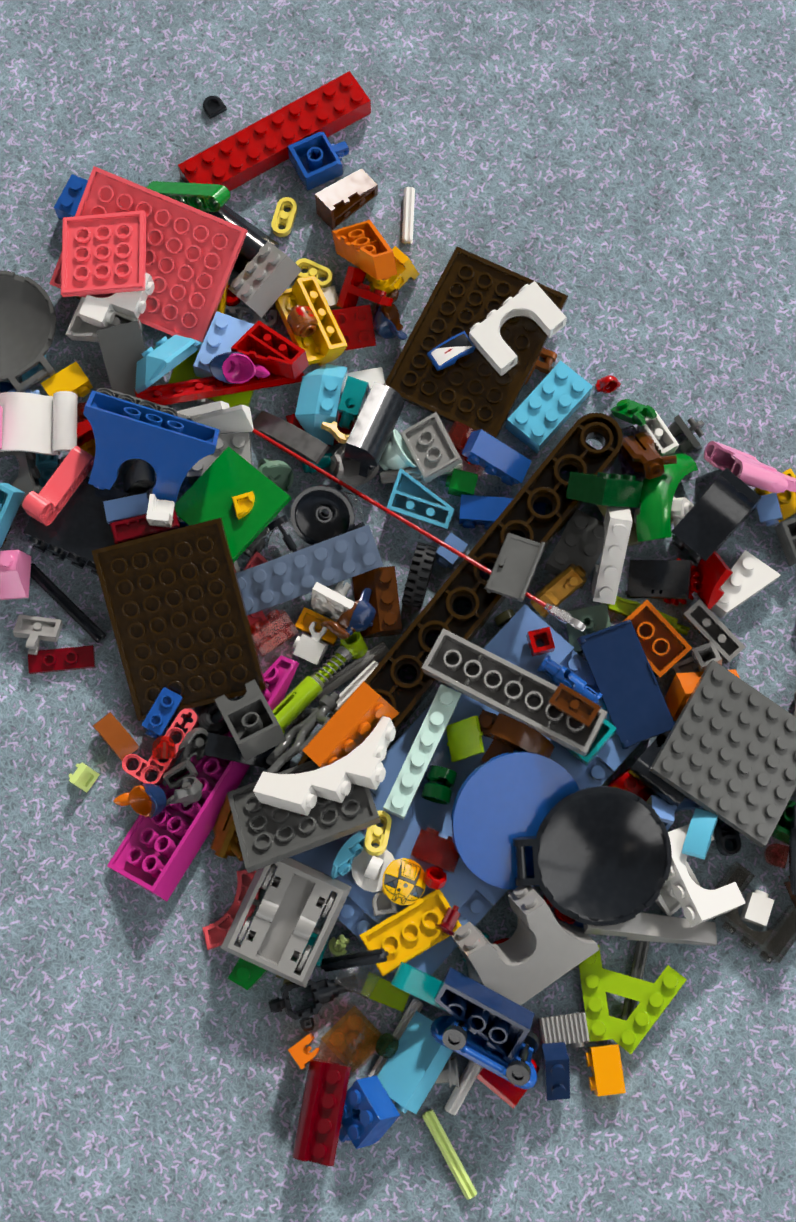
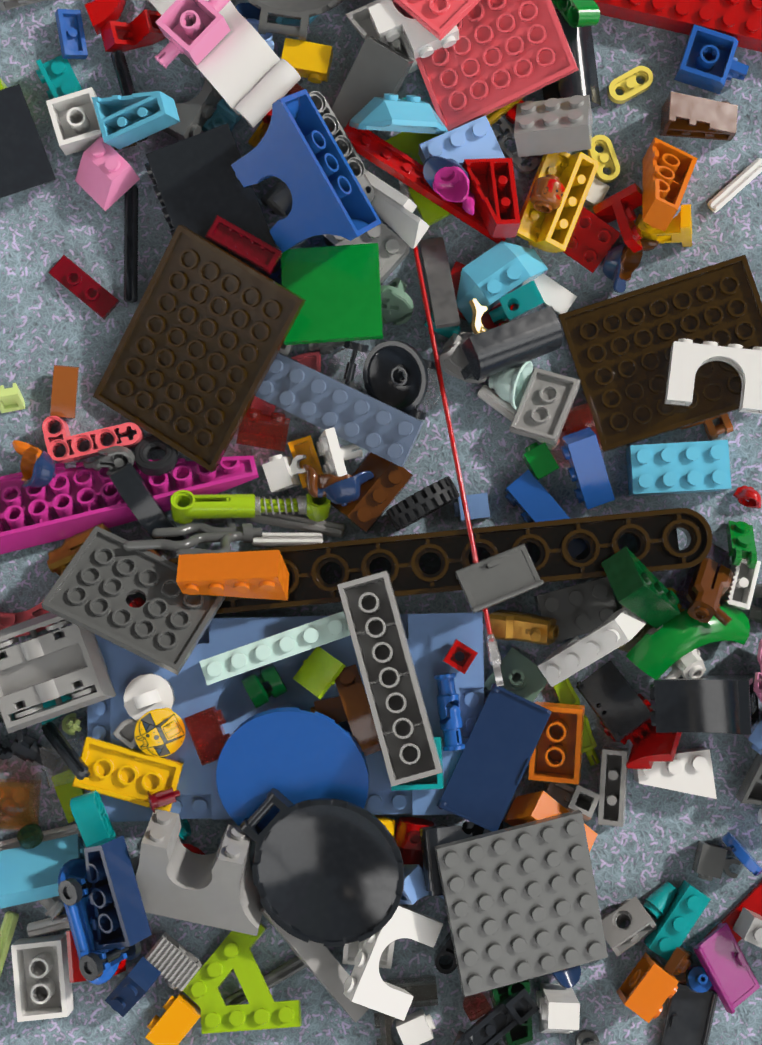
camera: 50 degrees right, 10 degrees up
(37, 629) = (86, 243): light grey plate -> none
(60, 487) = (206, 145): coral beam -> none
(126, 507) = (244, 215): medium blue tile -> none
(160, 512) = (264, 245): white panel -> none
(161, 713) = (114, 409): blue bracket -> none
(163, 748) = (88, 439): clear red tile -> none
(177, 771) = (92, 471): dark grey piece -> none
(189, 792) = (71, 495): dark grey piece -> none
(243, 504) = (339, 305): yellow tile -> none
(251, 722) = (167, 488): dark grey brick -> none
(333, 782) = (176, 605): white arch -> none
(344, 858) = (128, 670): medium azure slope -> none
(378, 835) = (177, 681): light yellow plate -> none
(418, 502) = (487, 442): medium azure wedge -> none
(435, 878) = (185, 754): red tile -> none
(451, 350) = (645, 341): slope -> none
(491, 1130) = (41, 978): none -> white brick
(504, 617) = (458, 604): olive tile -> none
(574, 705) = (420, 741): reddish brown plate -> none
(699, 833) = (422, 934): medium azure slope -> none

